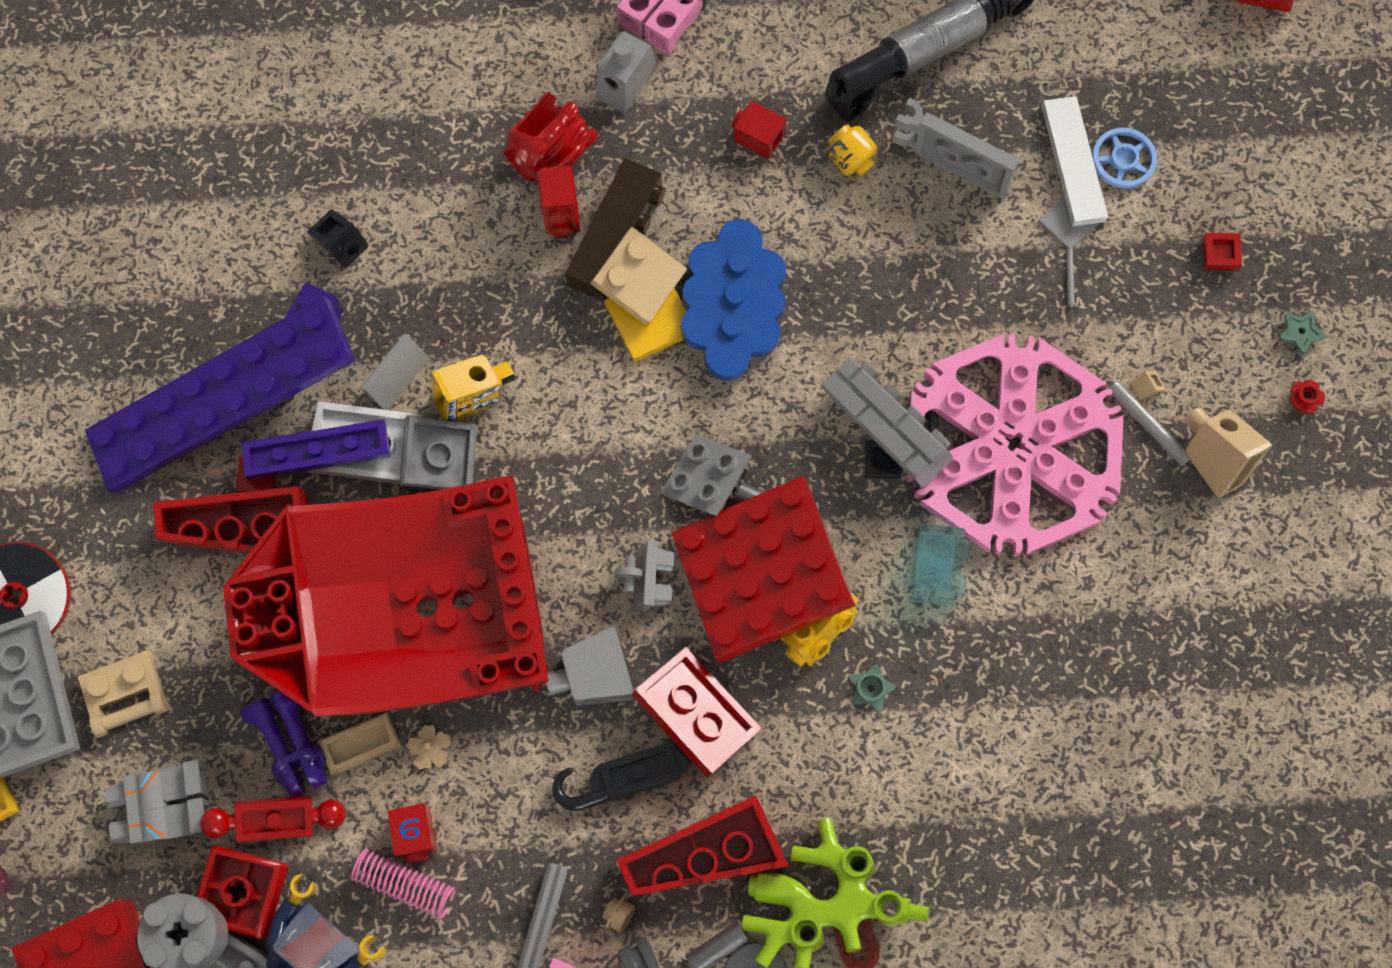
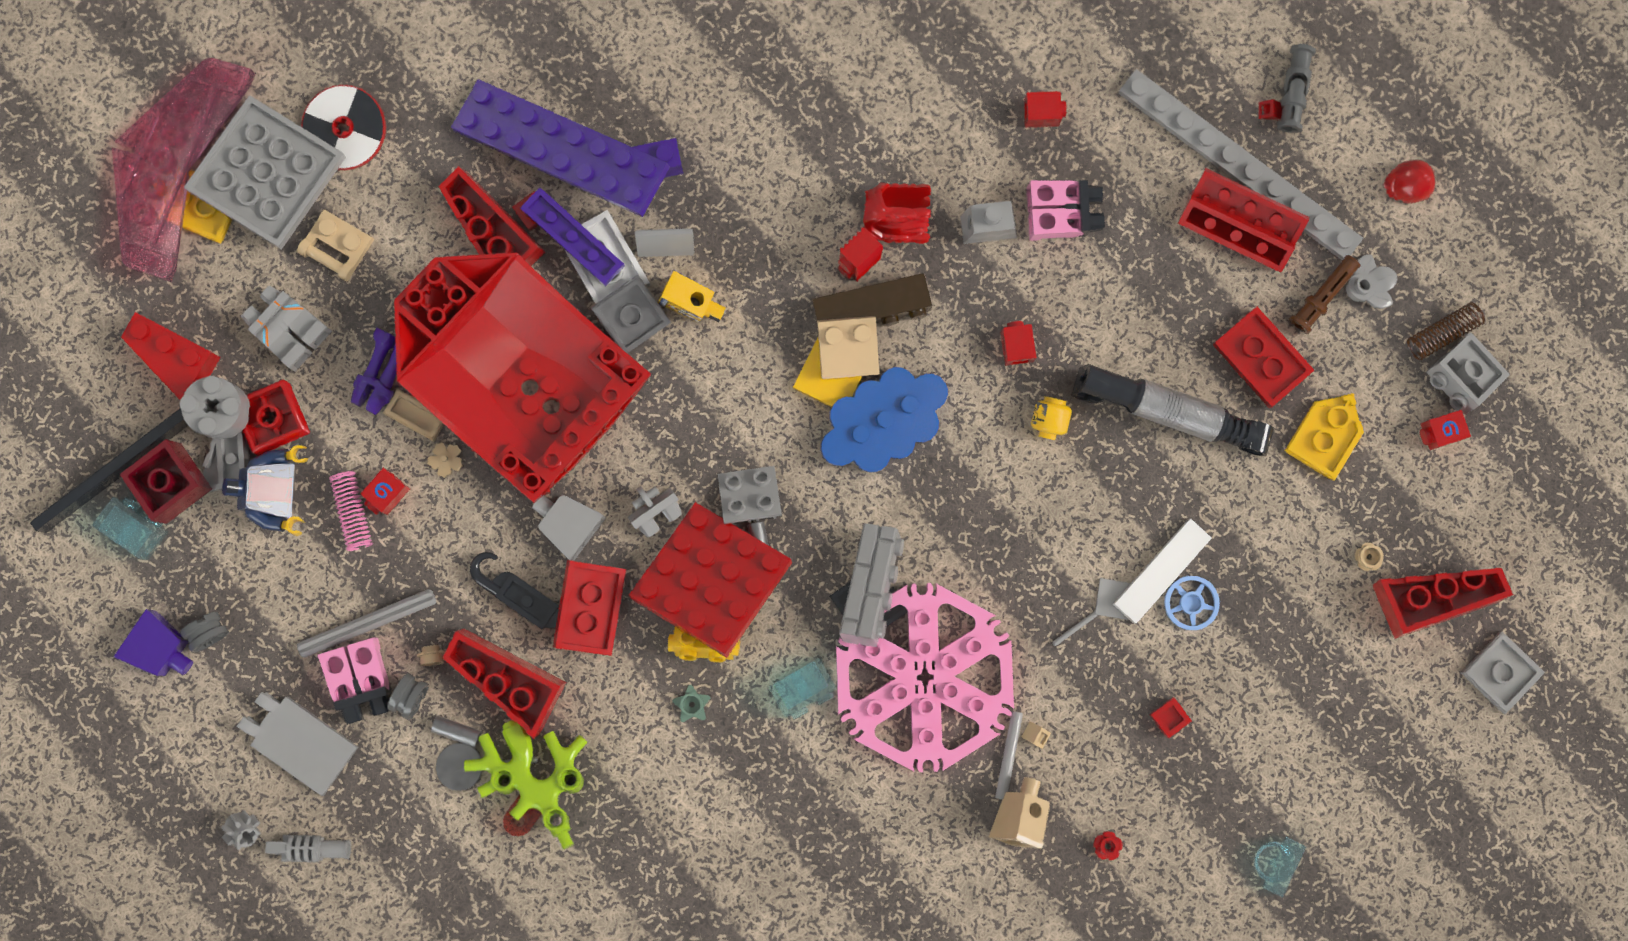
camera: 45 degrees right, 10 degrees up
(272, 818) = (328, 401): red plate -> none
(338, 237) = (727, 130): black bracket -> none
(956, 150) = (1100, 486): light grey tile -> none
(1292, 335) = (1145, 807): sand green plate -> none

